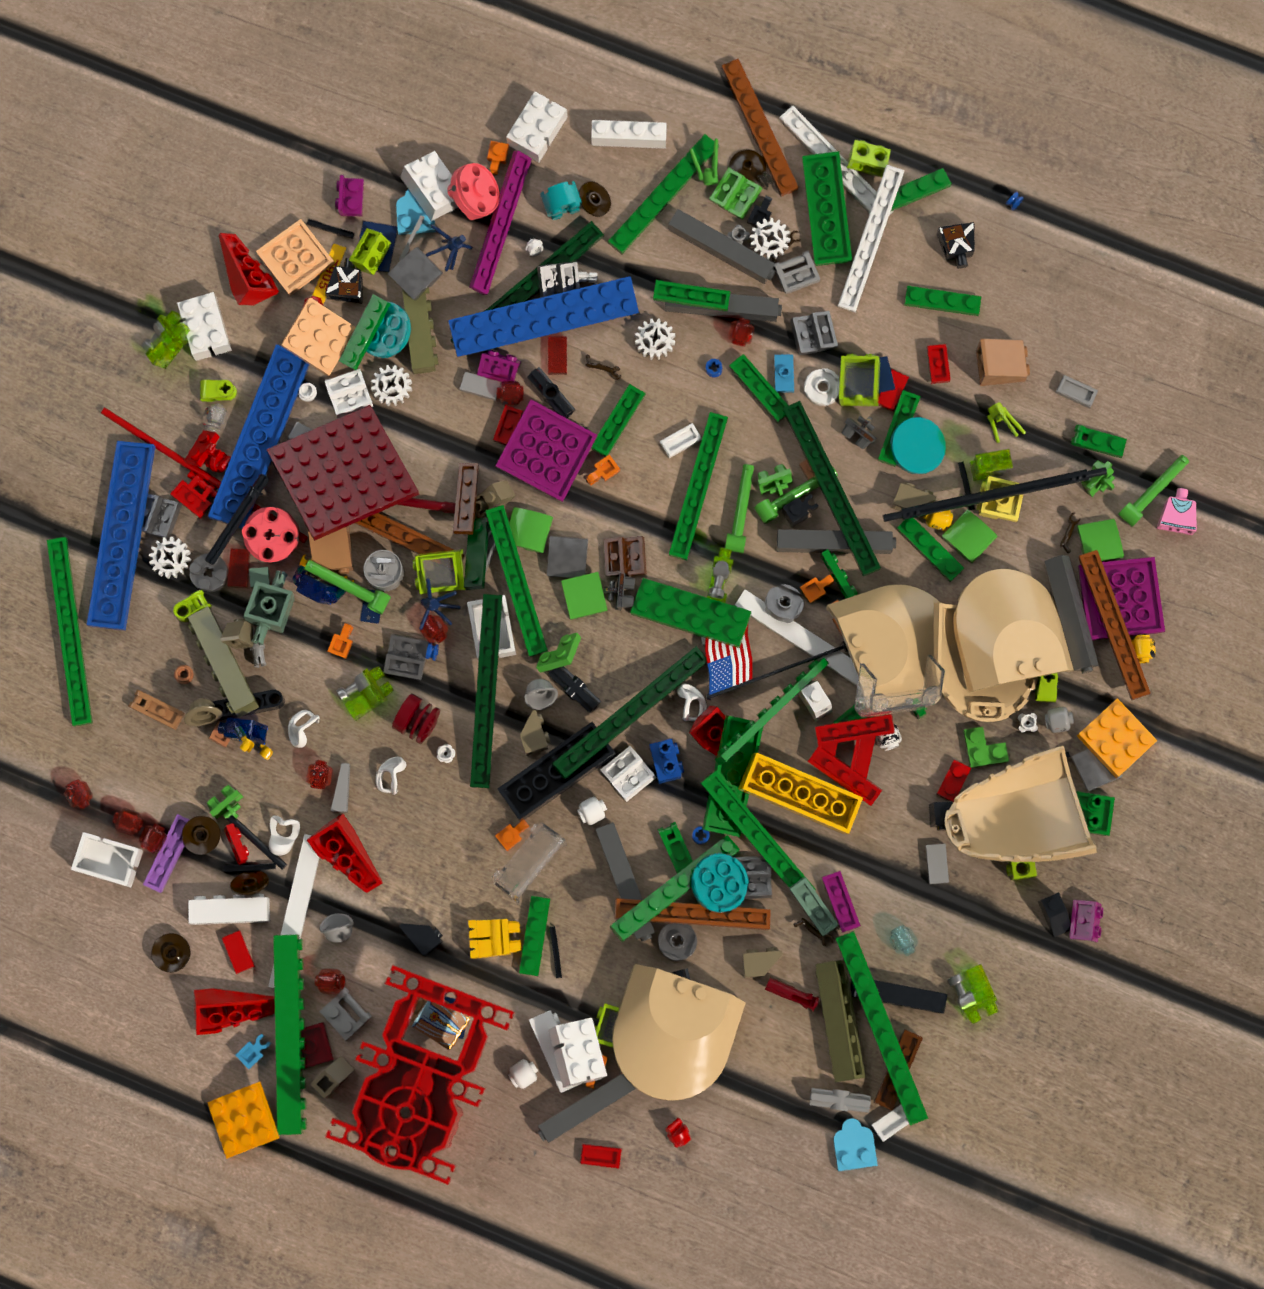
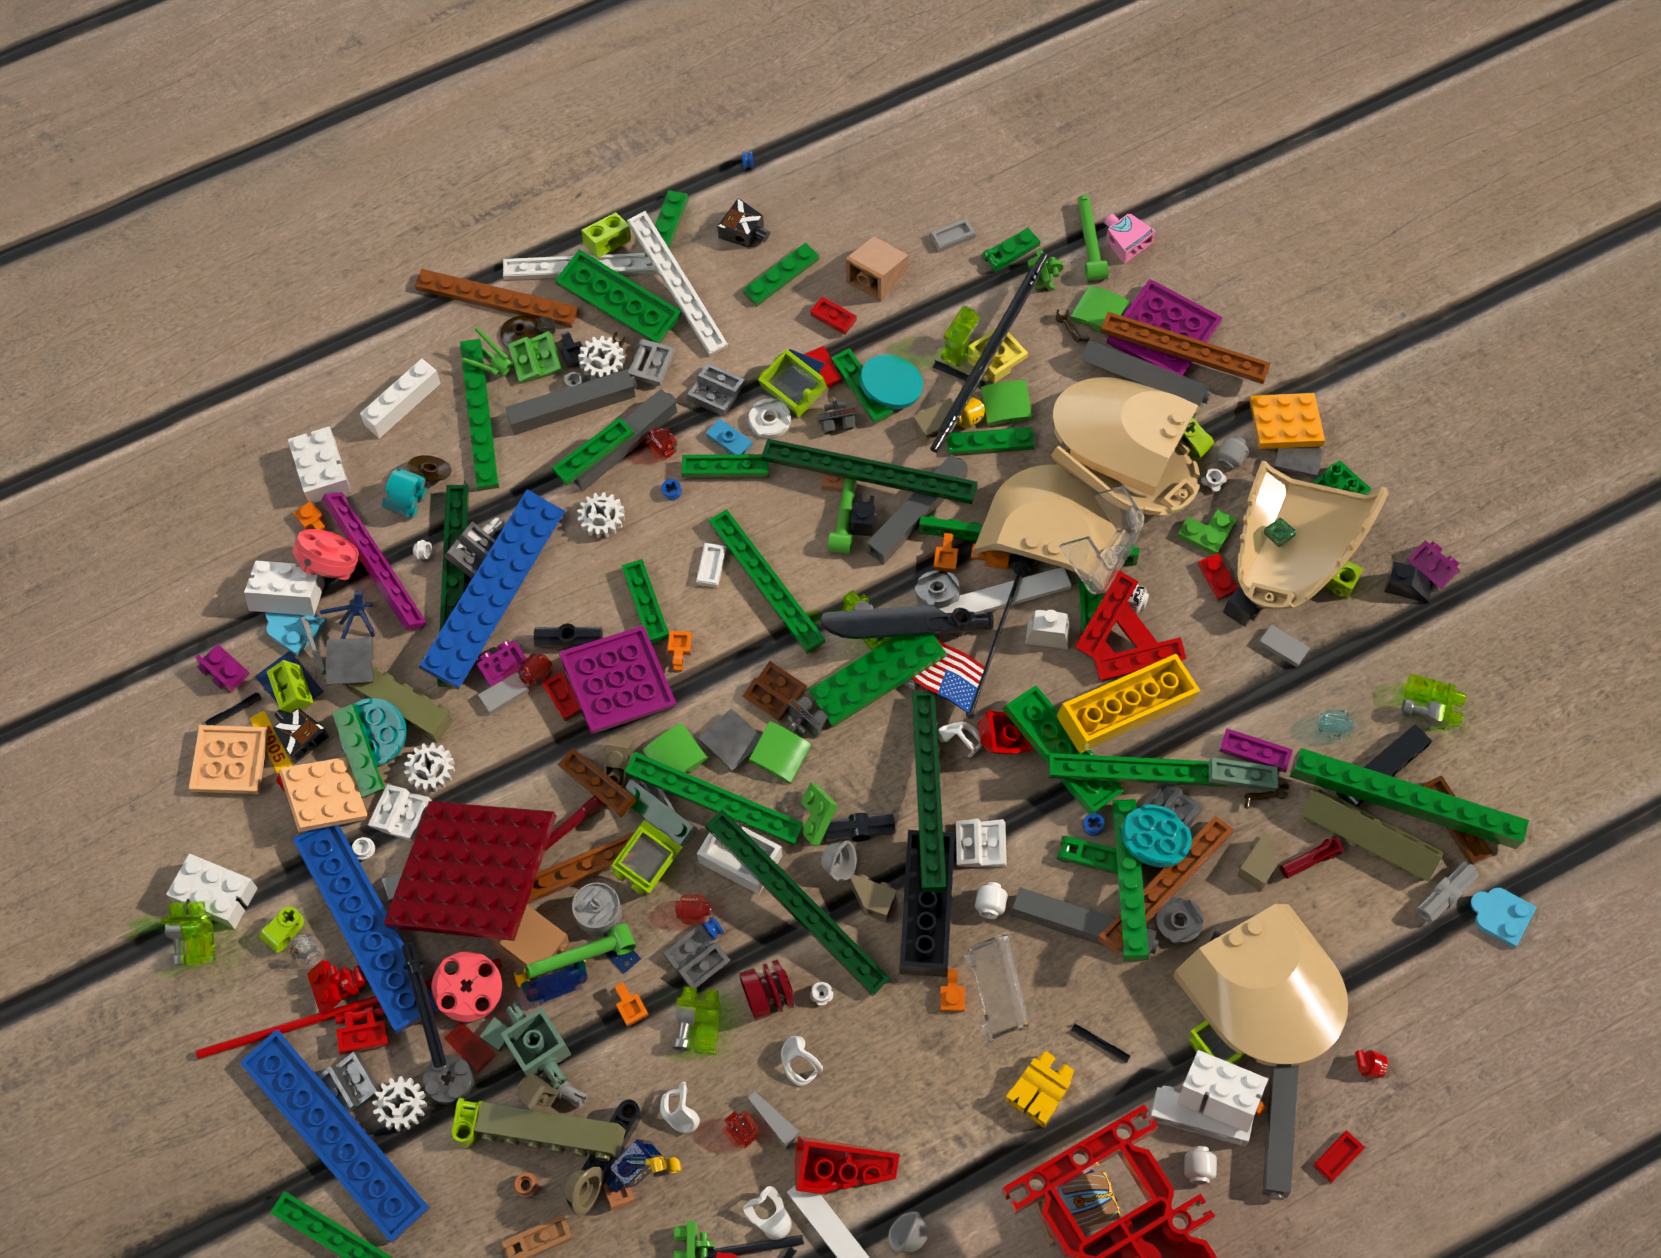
camera: 50 degrees left, 15 degrees down
(245, 276) = (201, 818): red wedge -> none
(423, 937) = (985, 1156): black slope -> none
(433, 604) = (669, 889): dark blue plant -> none
(534, 936) = (1069, 1050): green plate -> none
(557, 355) = (538, 607): clear red tile -> none
(602, 367) = (600, 575): dark brown piece -> none
(666, 761) = (997, 799): blue brick -> none
(733, 601) = (904, 622): none -> black piece
(736, 540) = (841, 585): bright green piece -> none
(765, 715) = (1032, 673): green plate -> none
(775, 482) = (821, 515): bright green hips -> none
(890, 1123) = (1502, 866): white tile -> none
(1000, 413) = (919, 302): lime plant -> none
(1019, 798) = (1279, 532): none -> clear green plate
(1144, 648) = (1224, 340): yellow head -> none

